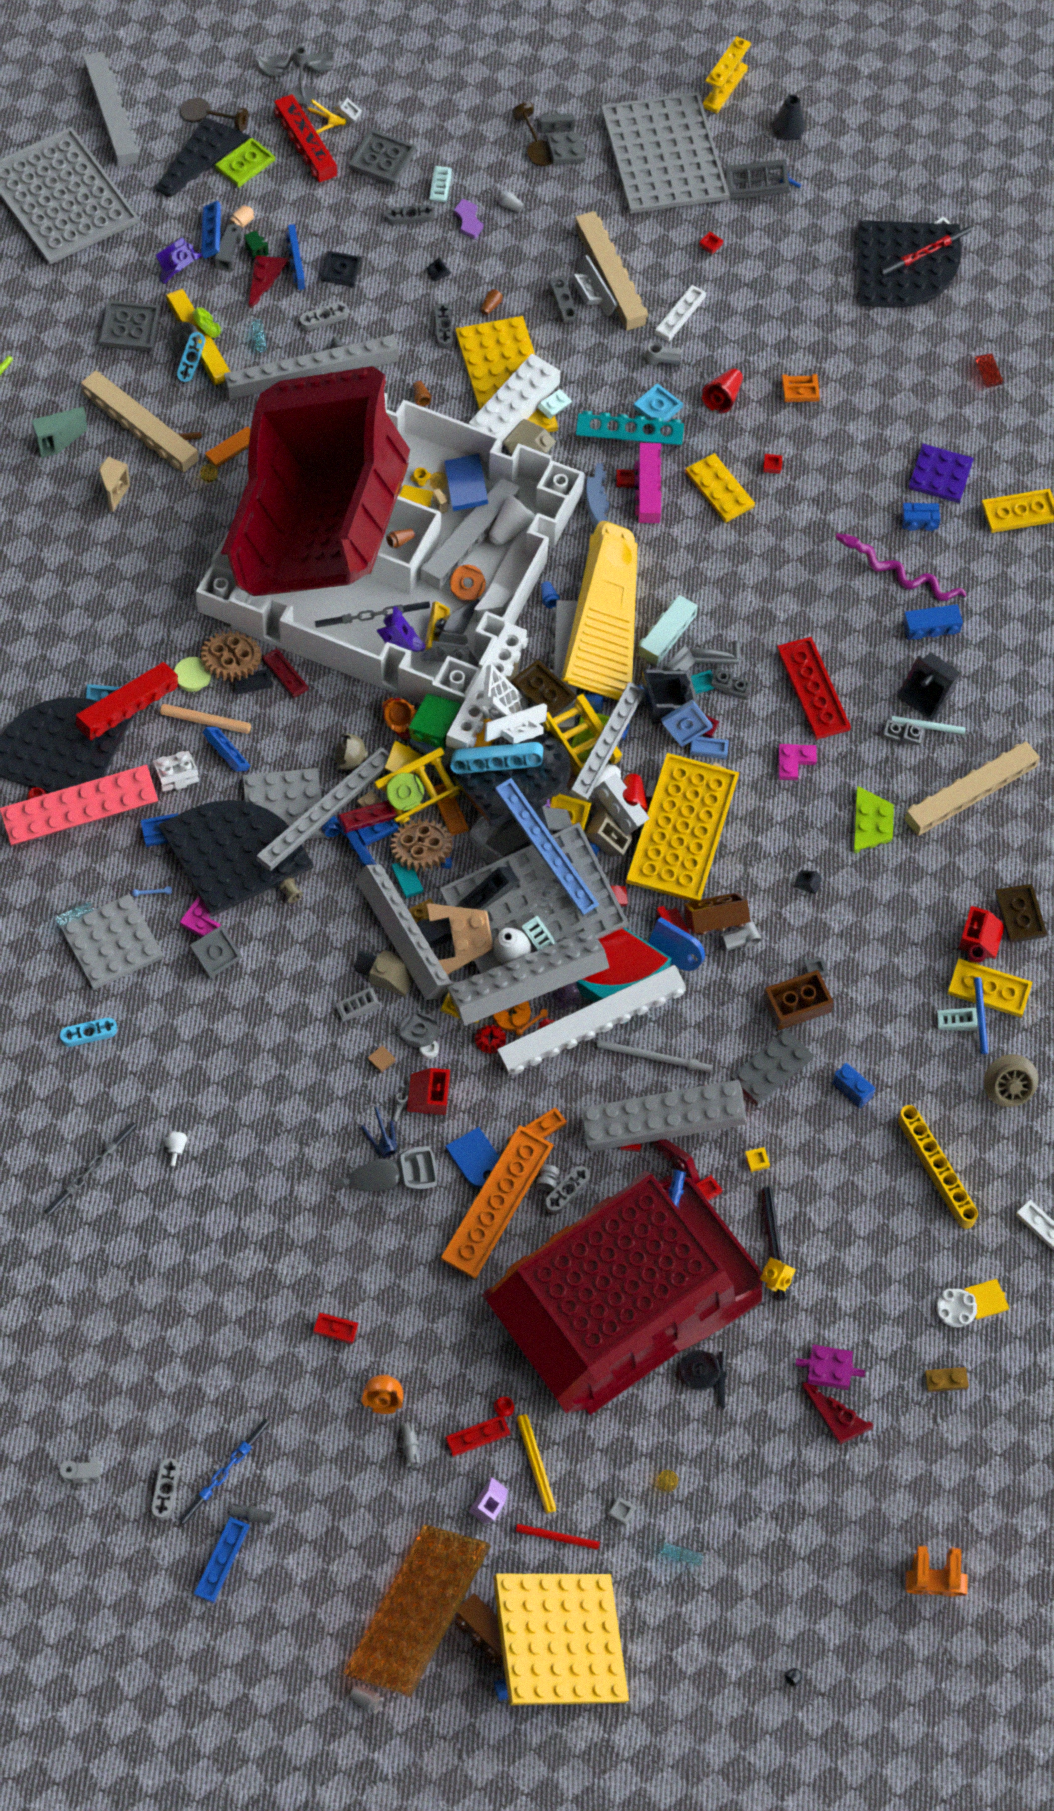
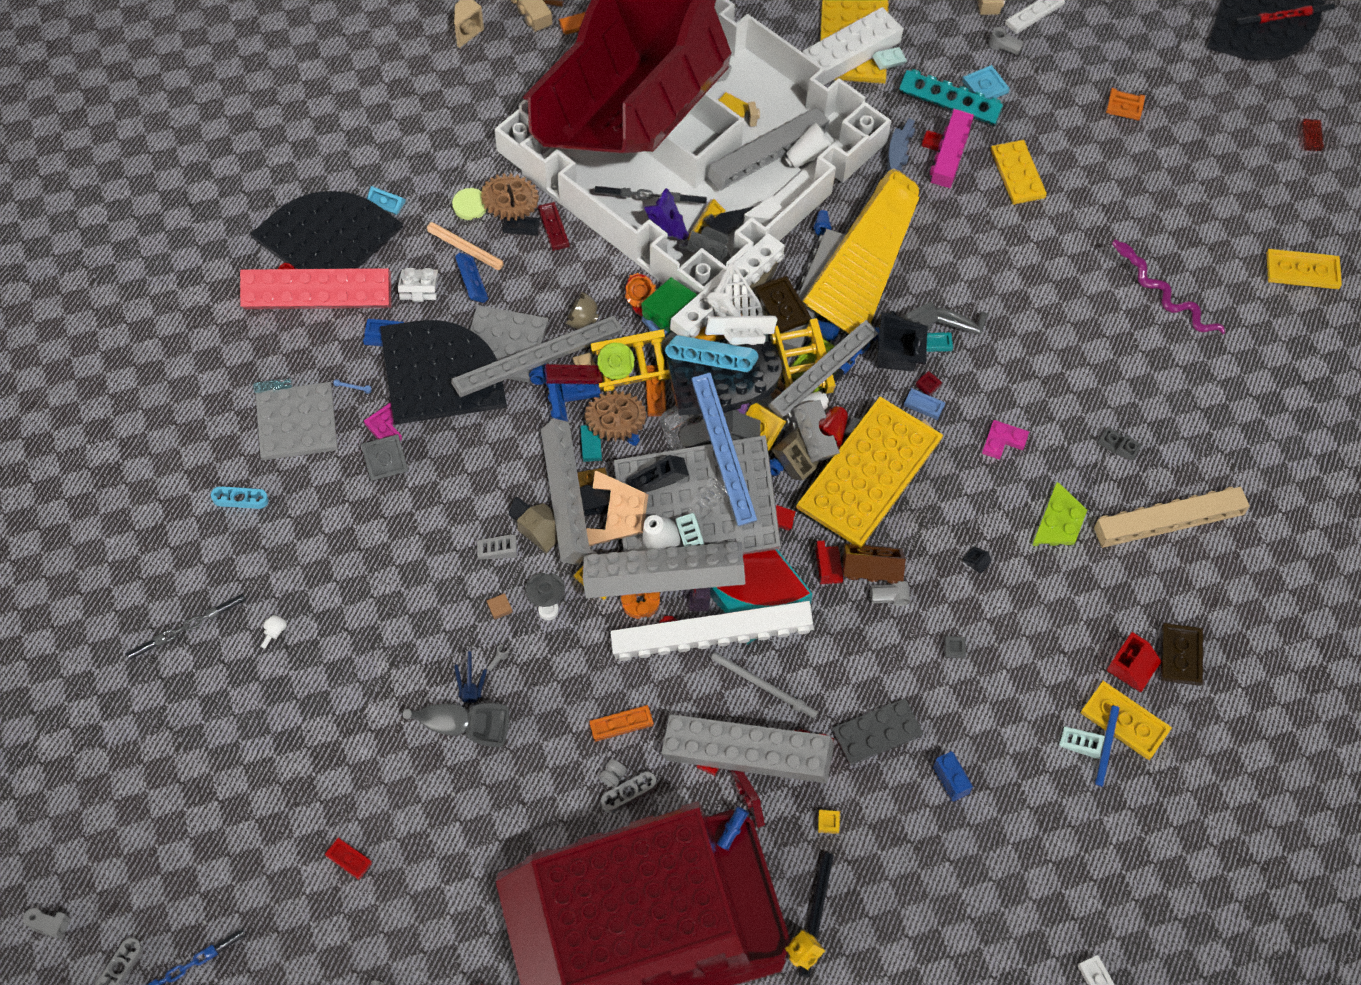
camera: 20 degrees right, 0 degrees up
(127, 701) = (398, 209): red brick -> none
(209, 473) = (556, 37): clear yellow tile -> none
(290, 890) = (477, 421): dark tan bush -> none
(383, 1394) = (365, 942): orange cylinder -> none
(399, 537) = (693, 130): dark orange cone -> none
(400, 757) = (626, 327): yellow piece -> none
(420, 472) = (743, 84): yellow plate -> none
(421, 394) = (772, 20): dark orange cone -> none
(429, 1091) = (531, 652): red slope -> none
(438, 480) = (758, 96): clear yellow tile -> none
(458, 588) = (756, 183): orange tile -> none
(466, 482) = (781, 103): blue tile -> none
(473, 1156) = (552, 731): blue tile -> none
(483, 1043) = (617, 624): red gear -> none
(497, 1202) = (553, 783): orange plate -> none
(529, 435) = (857, 78): dark tan slope -> none
(543, 1013) = (672, 609): orange hinge -> none
(667, 630) = (922, 285): light aqua brick -> none
(677, 945) = (823, 583): blue tile -> none
(686, 723) = (908, 374): medium blue plate -> none
(709, 1187) = (769, 835): red tile -> none
(722, 391) = (1050, 86): red cone -> none
(731, 685) = (962, 349): dark grey slope -> none
(772, 463) = (1076, 163): red plate -> none
(798, 1000) = (925, 673): reddish brown brick -> none
(813, 688) = (1045, 377): red plate -> none
(920, 516) = (1203, 247): blue brick -> none
(928, 1160) = (1011, 898): yellow beam -> none
(929, 685) = (1159, 405): black piece -> none
(930, 725) = (1150, 445): light aqua bar -> none
(932, 622) = (1183, 348): blue brick -> none
(941, 473) = (1236, 215): dark purple plate -> none
(979, 951) = (1125, 679): dark red cone -> none
(1010, 1080) = (1116, 822): dark tan piece -> none

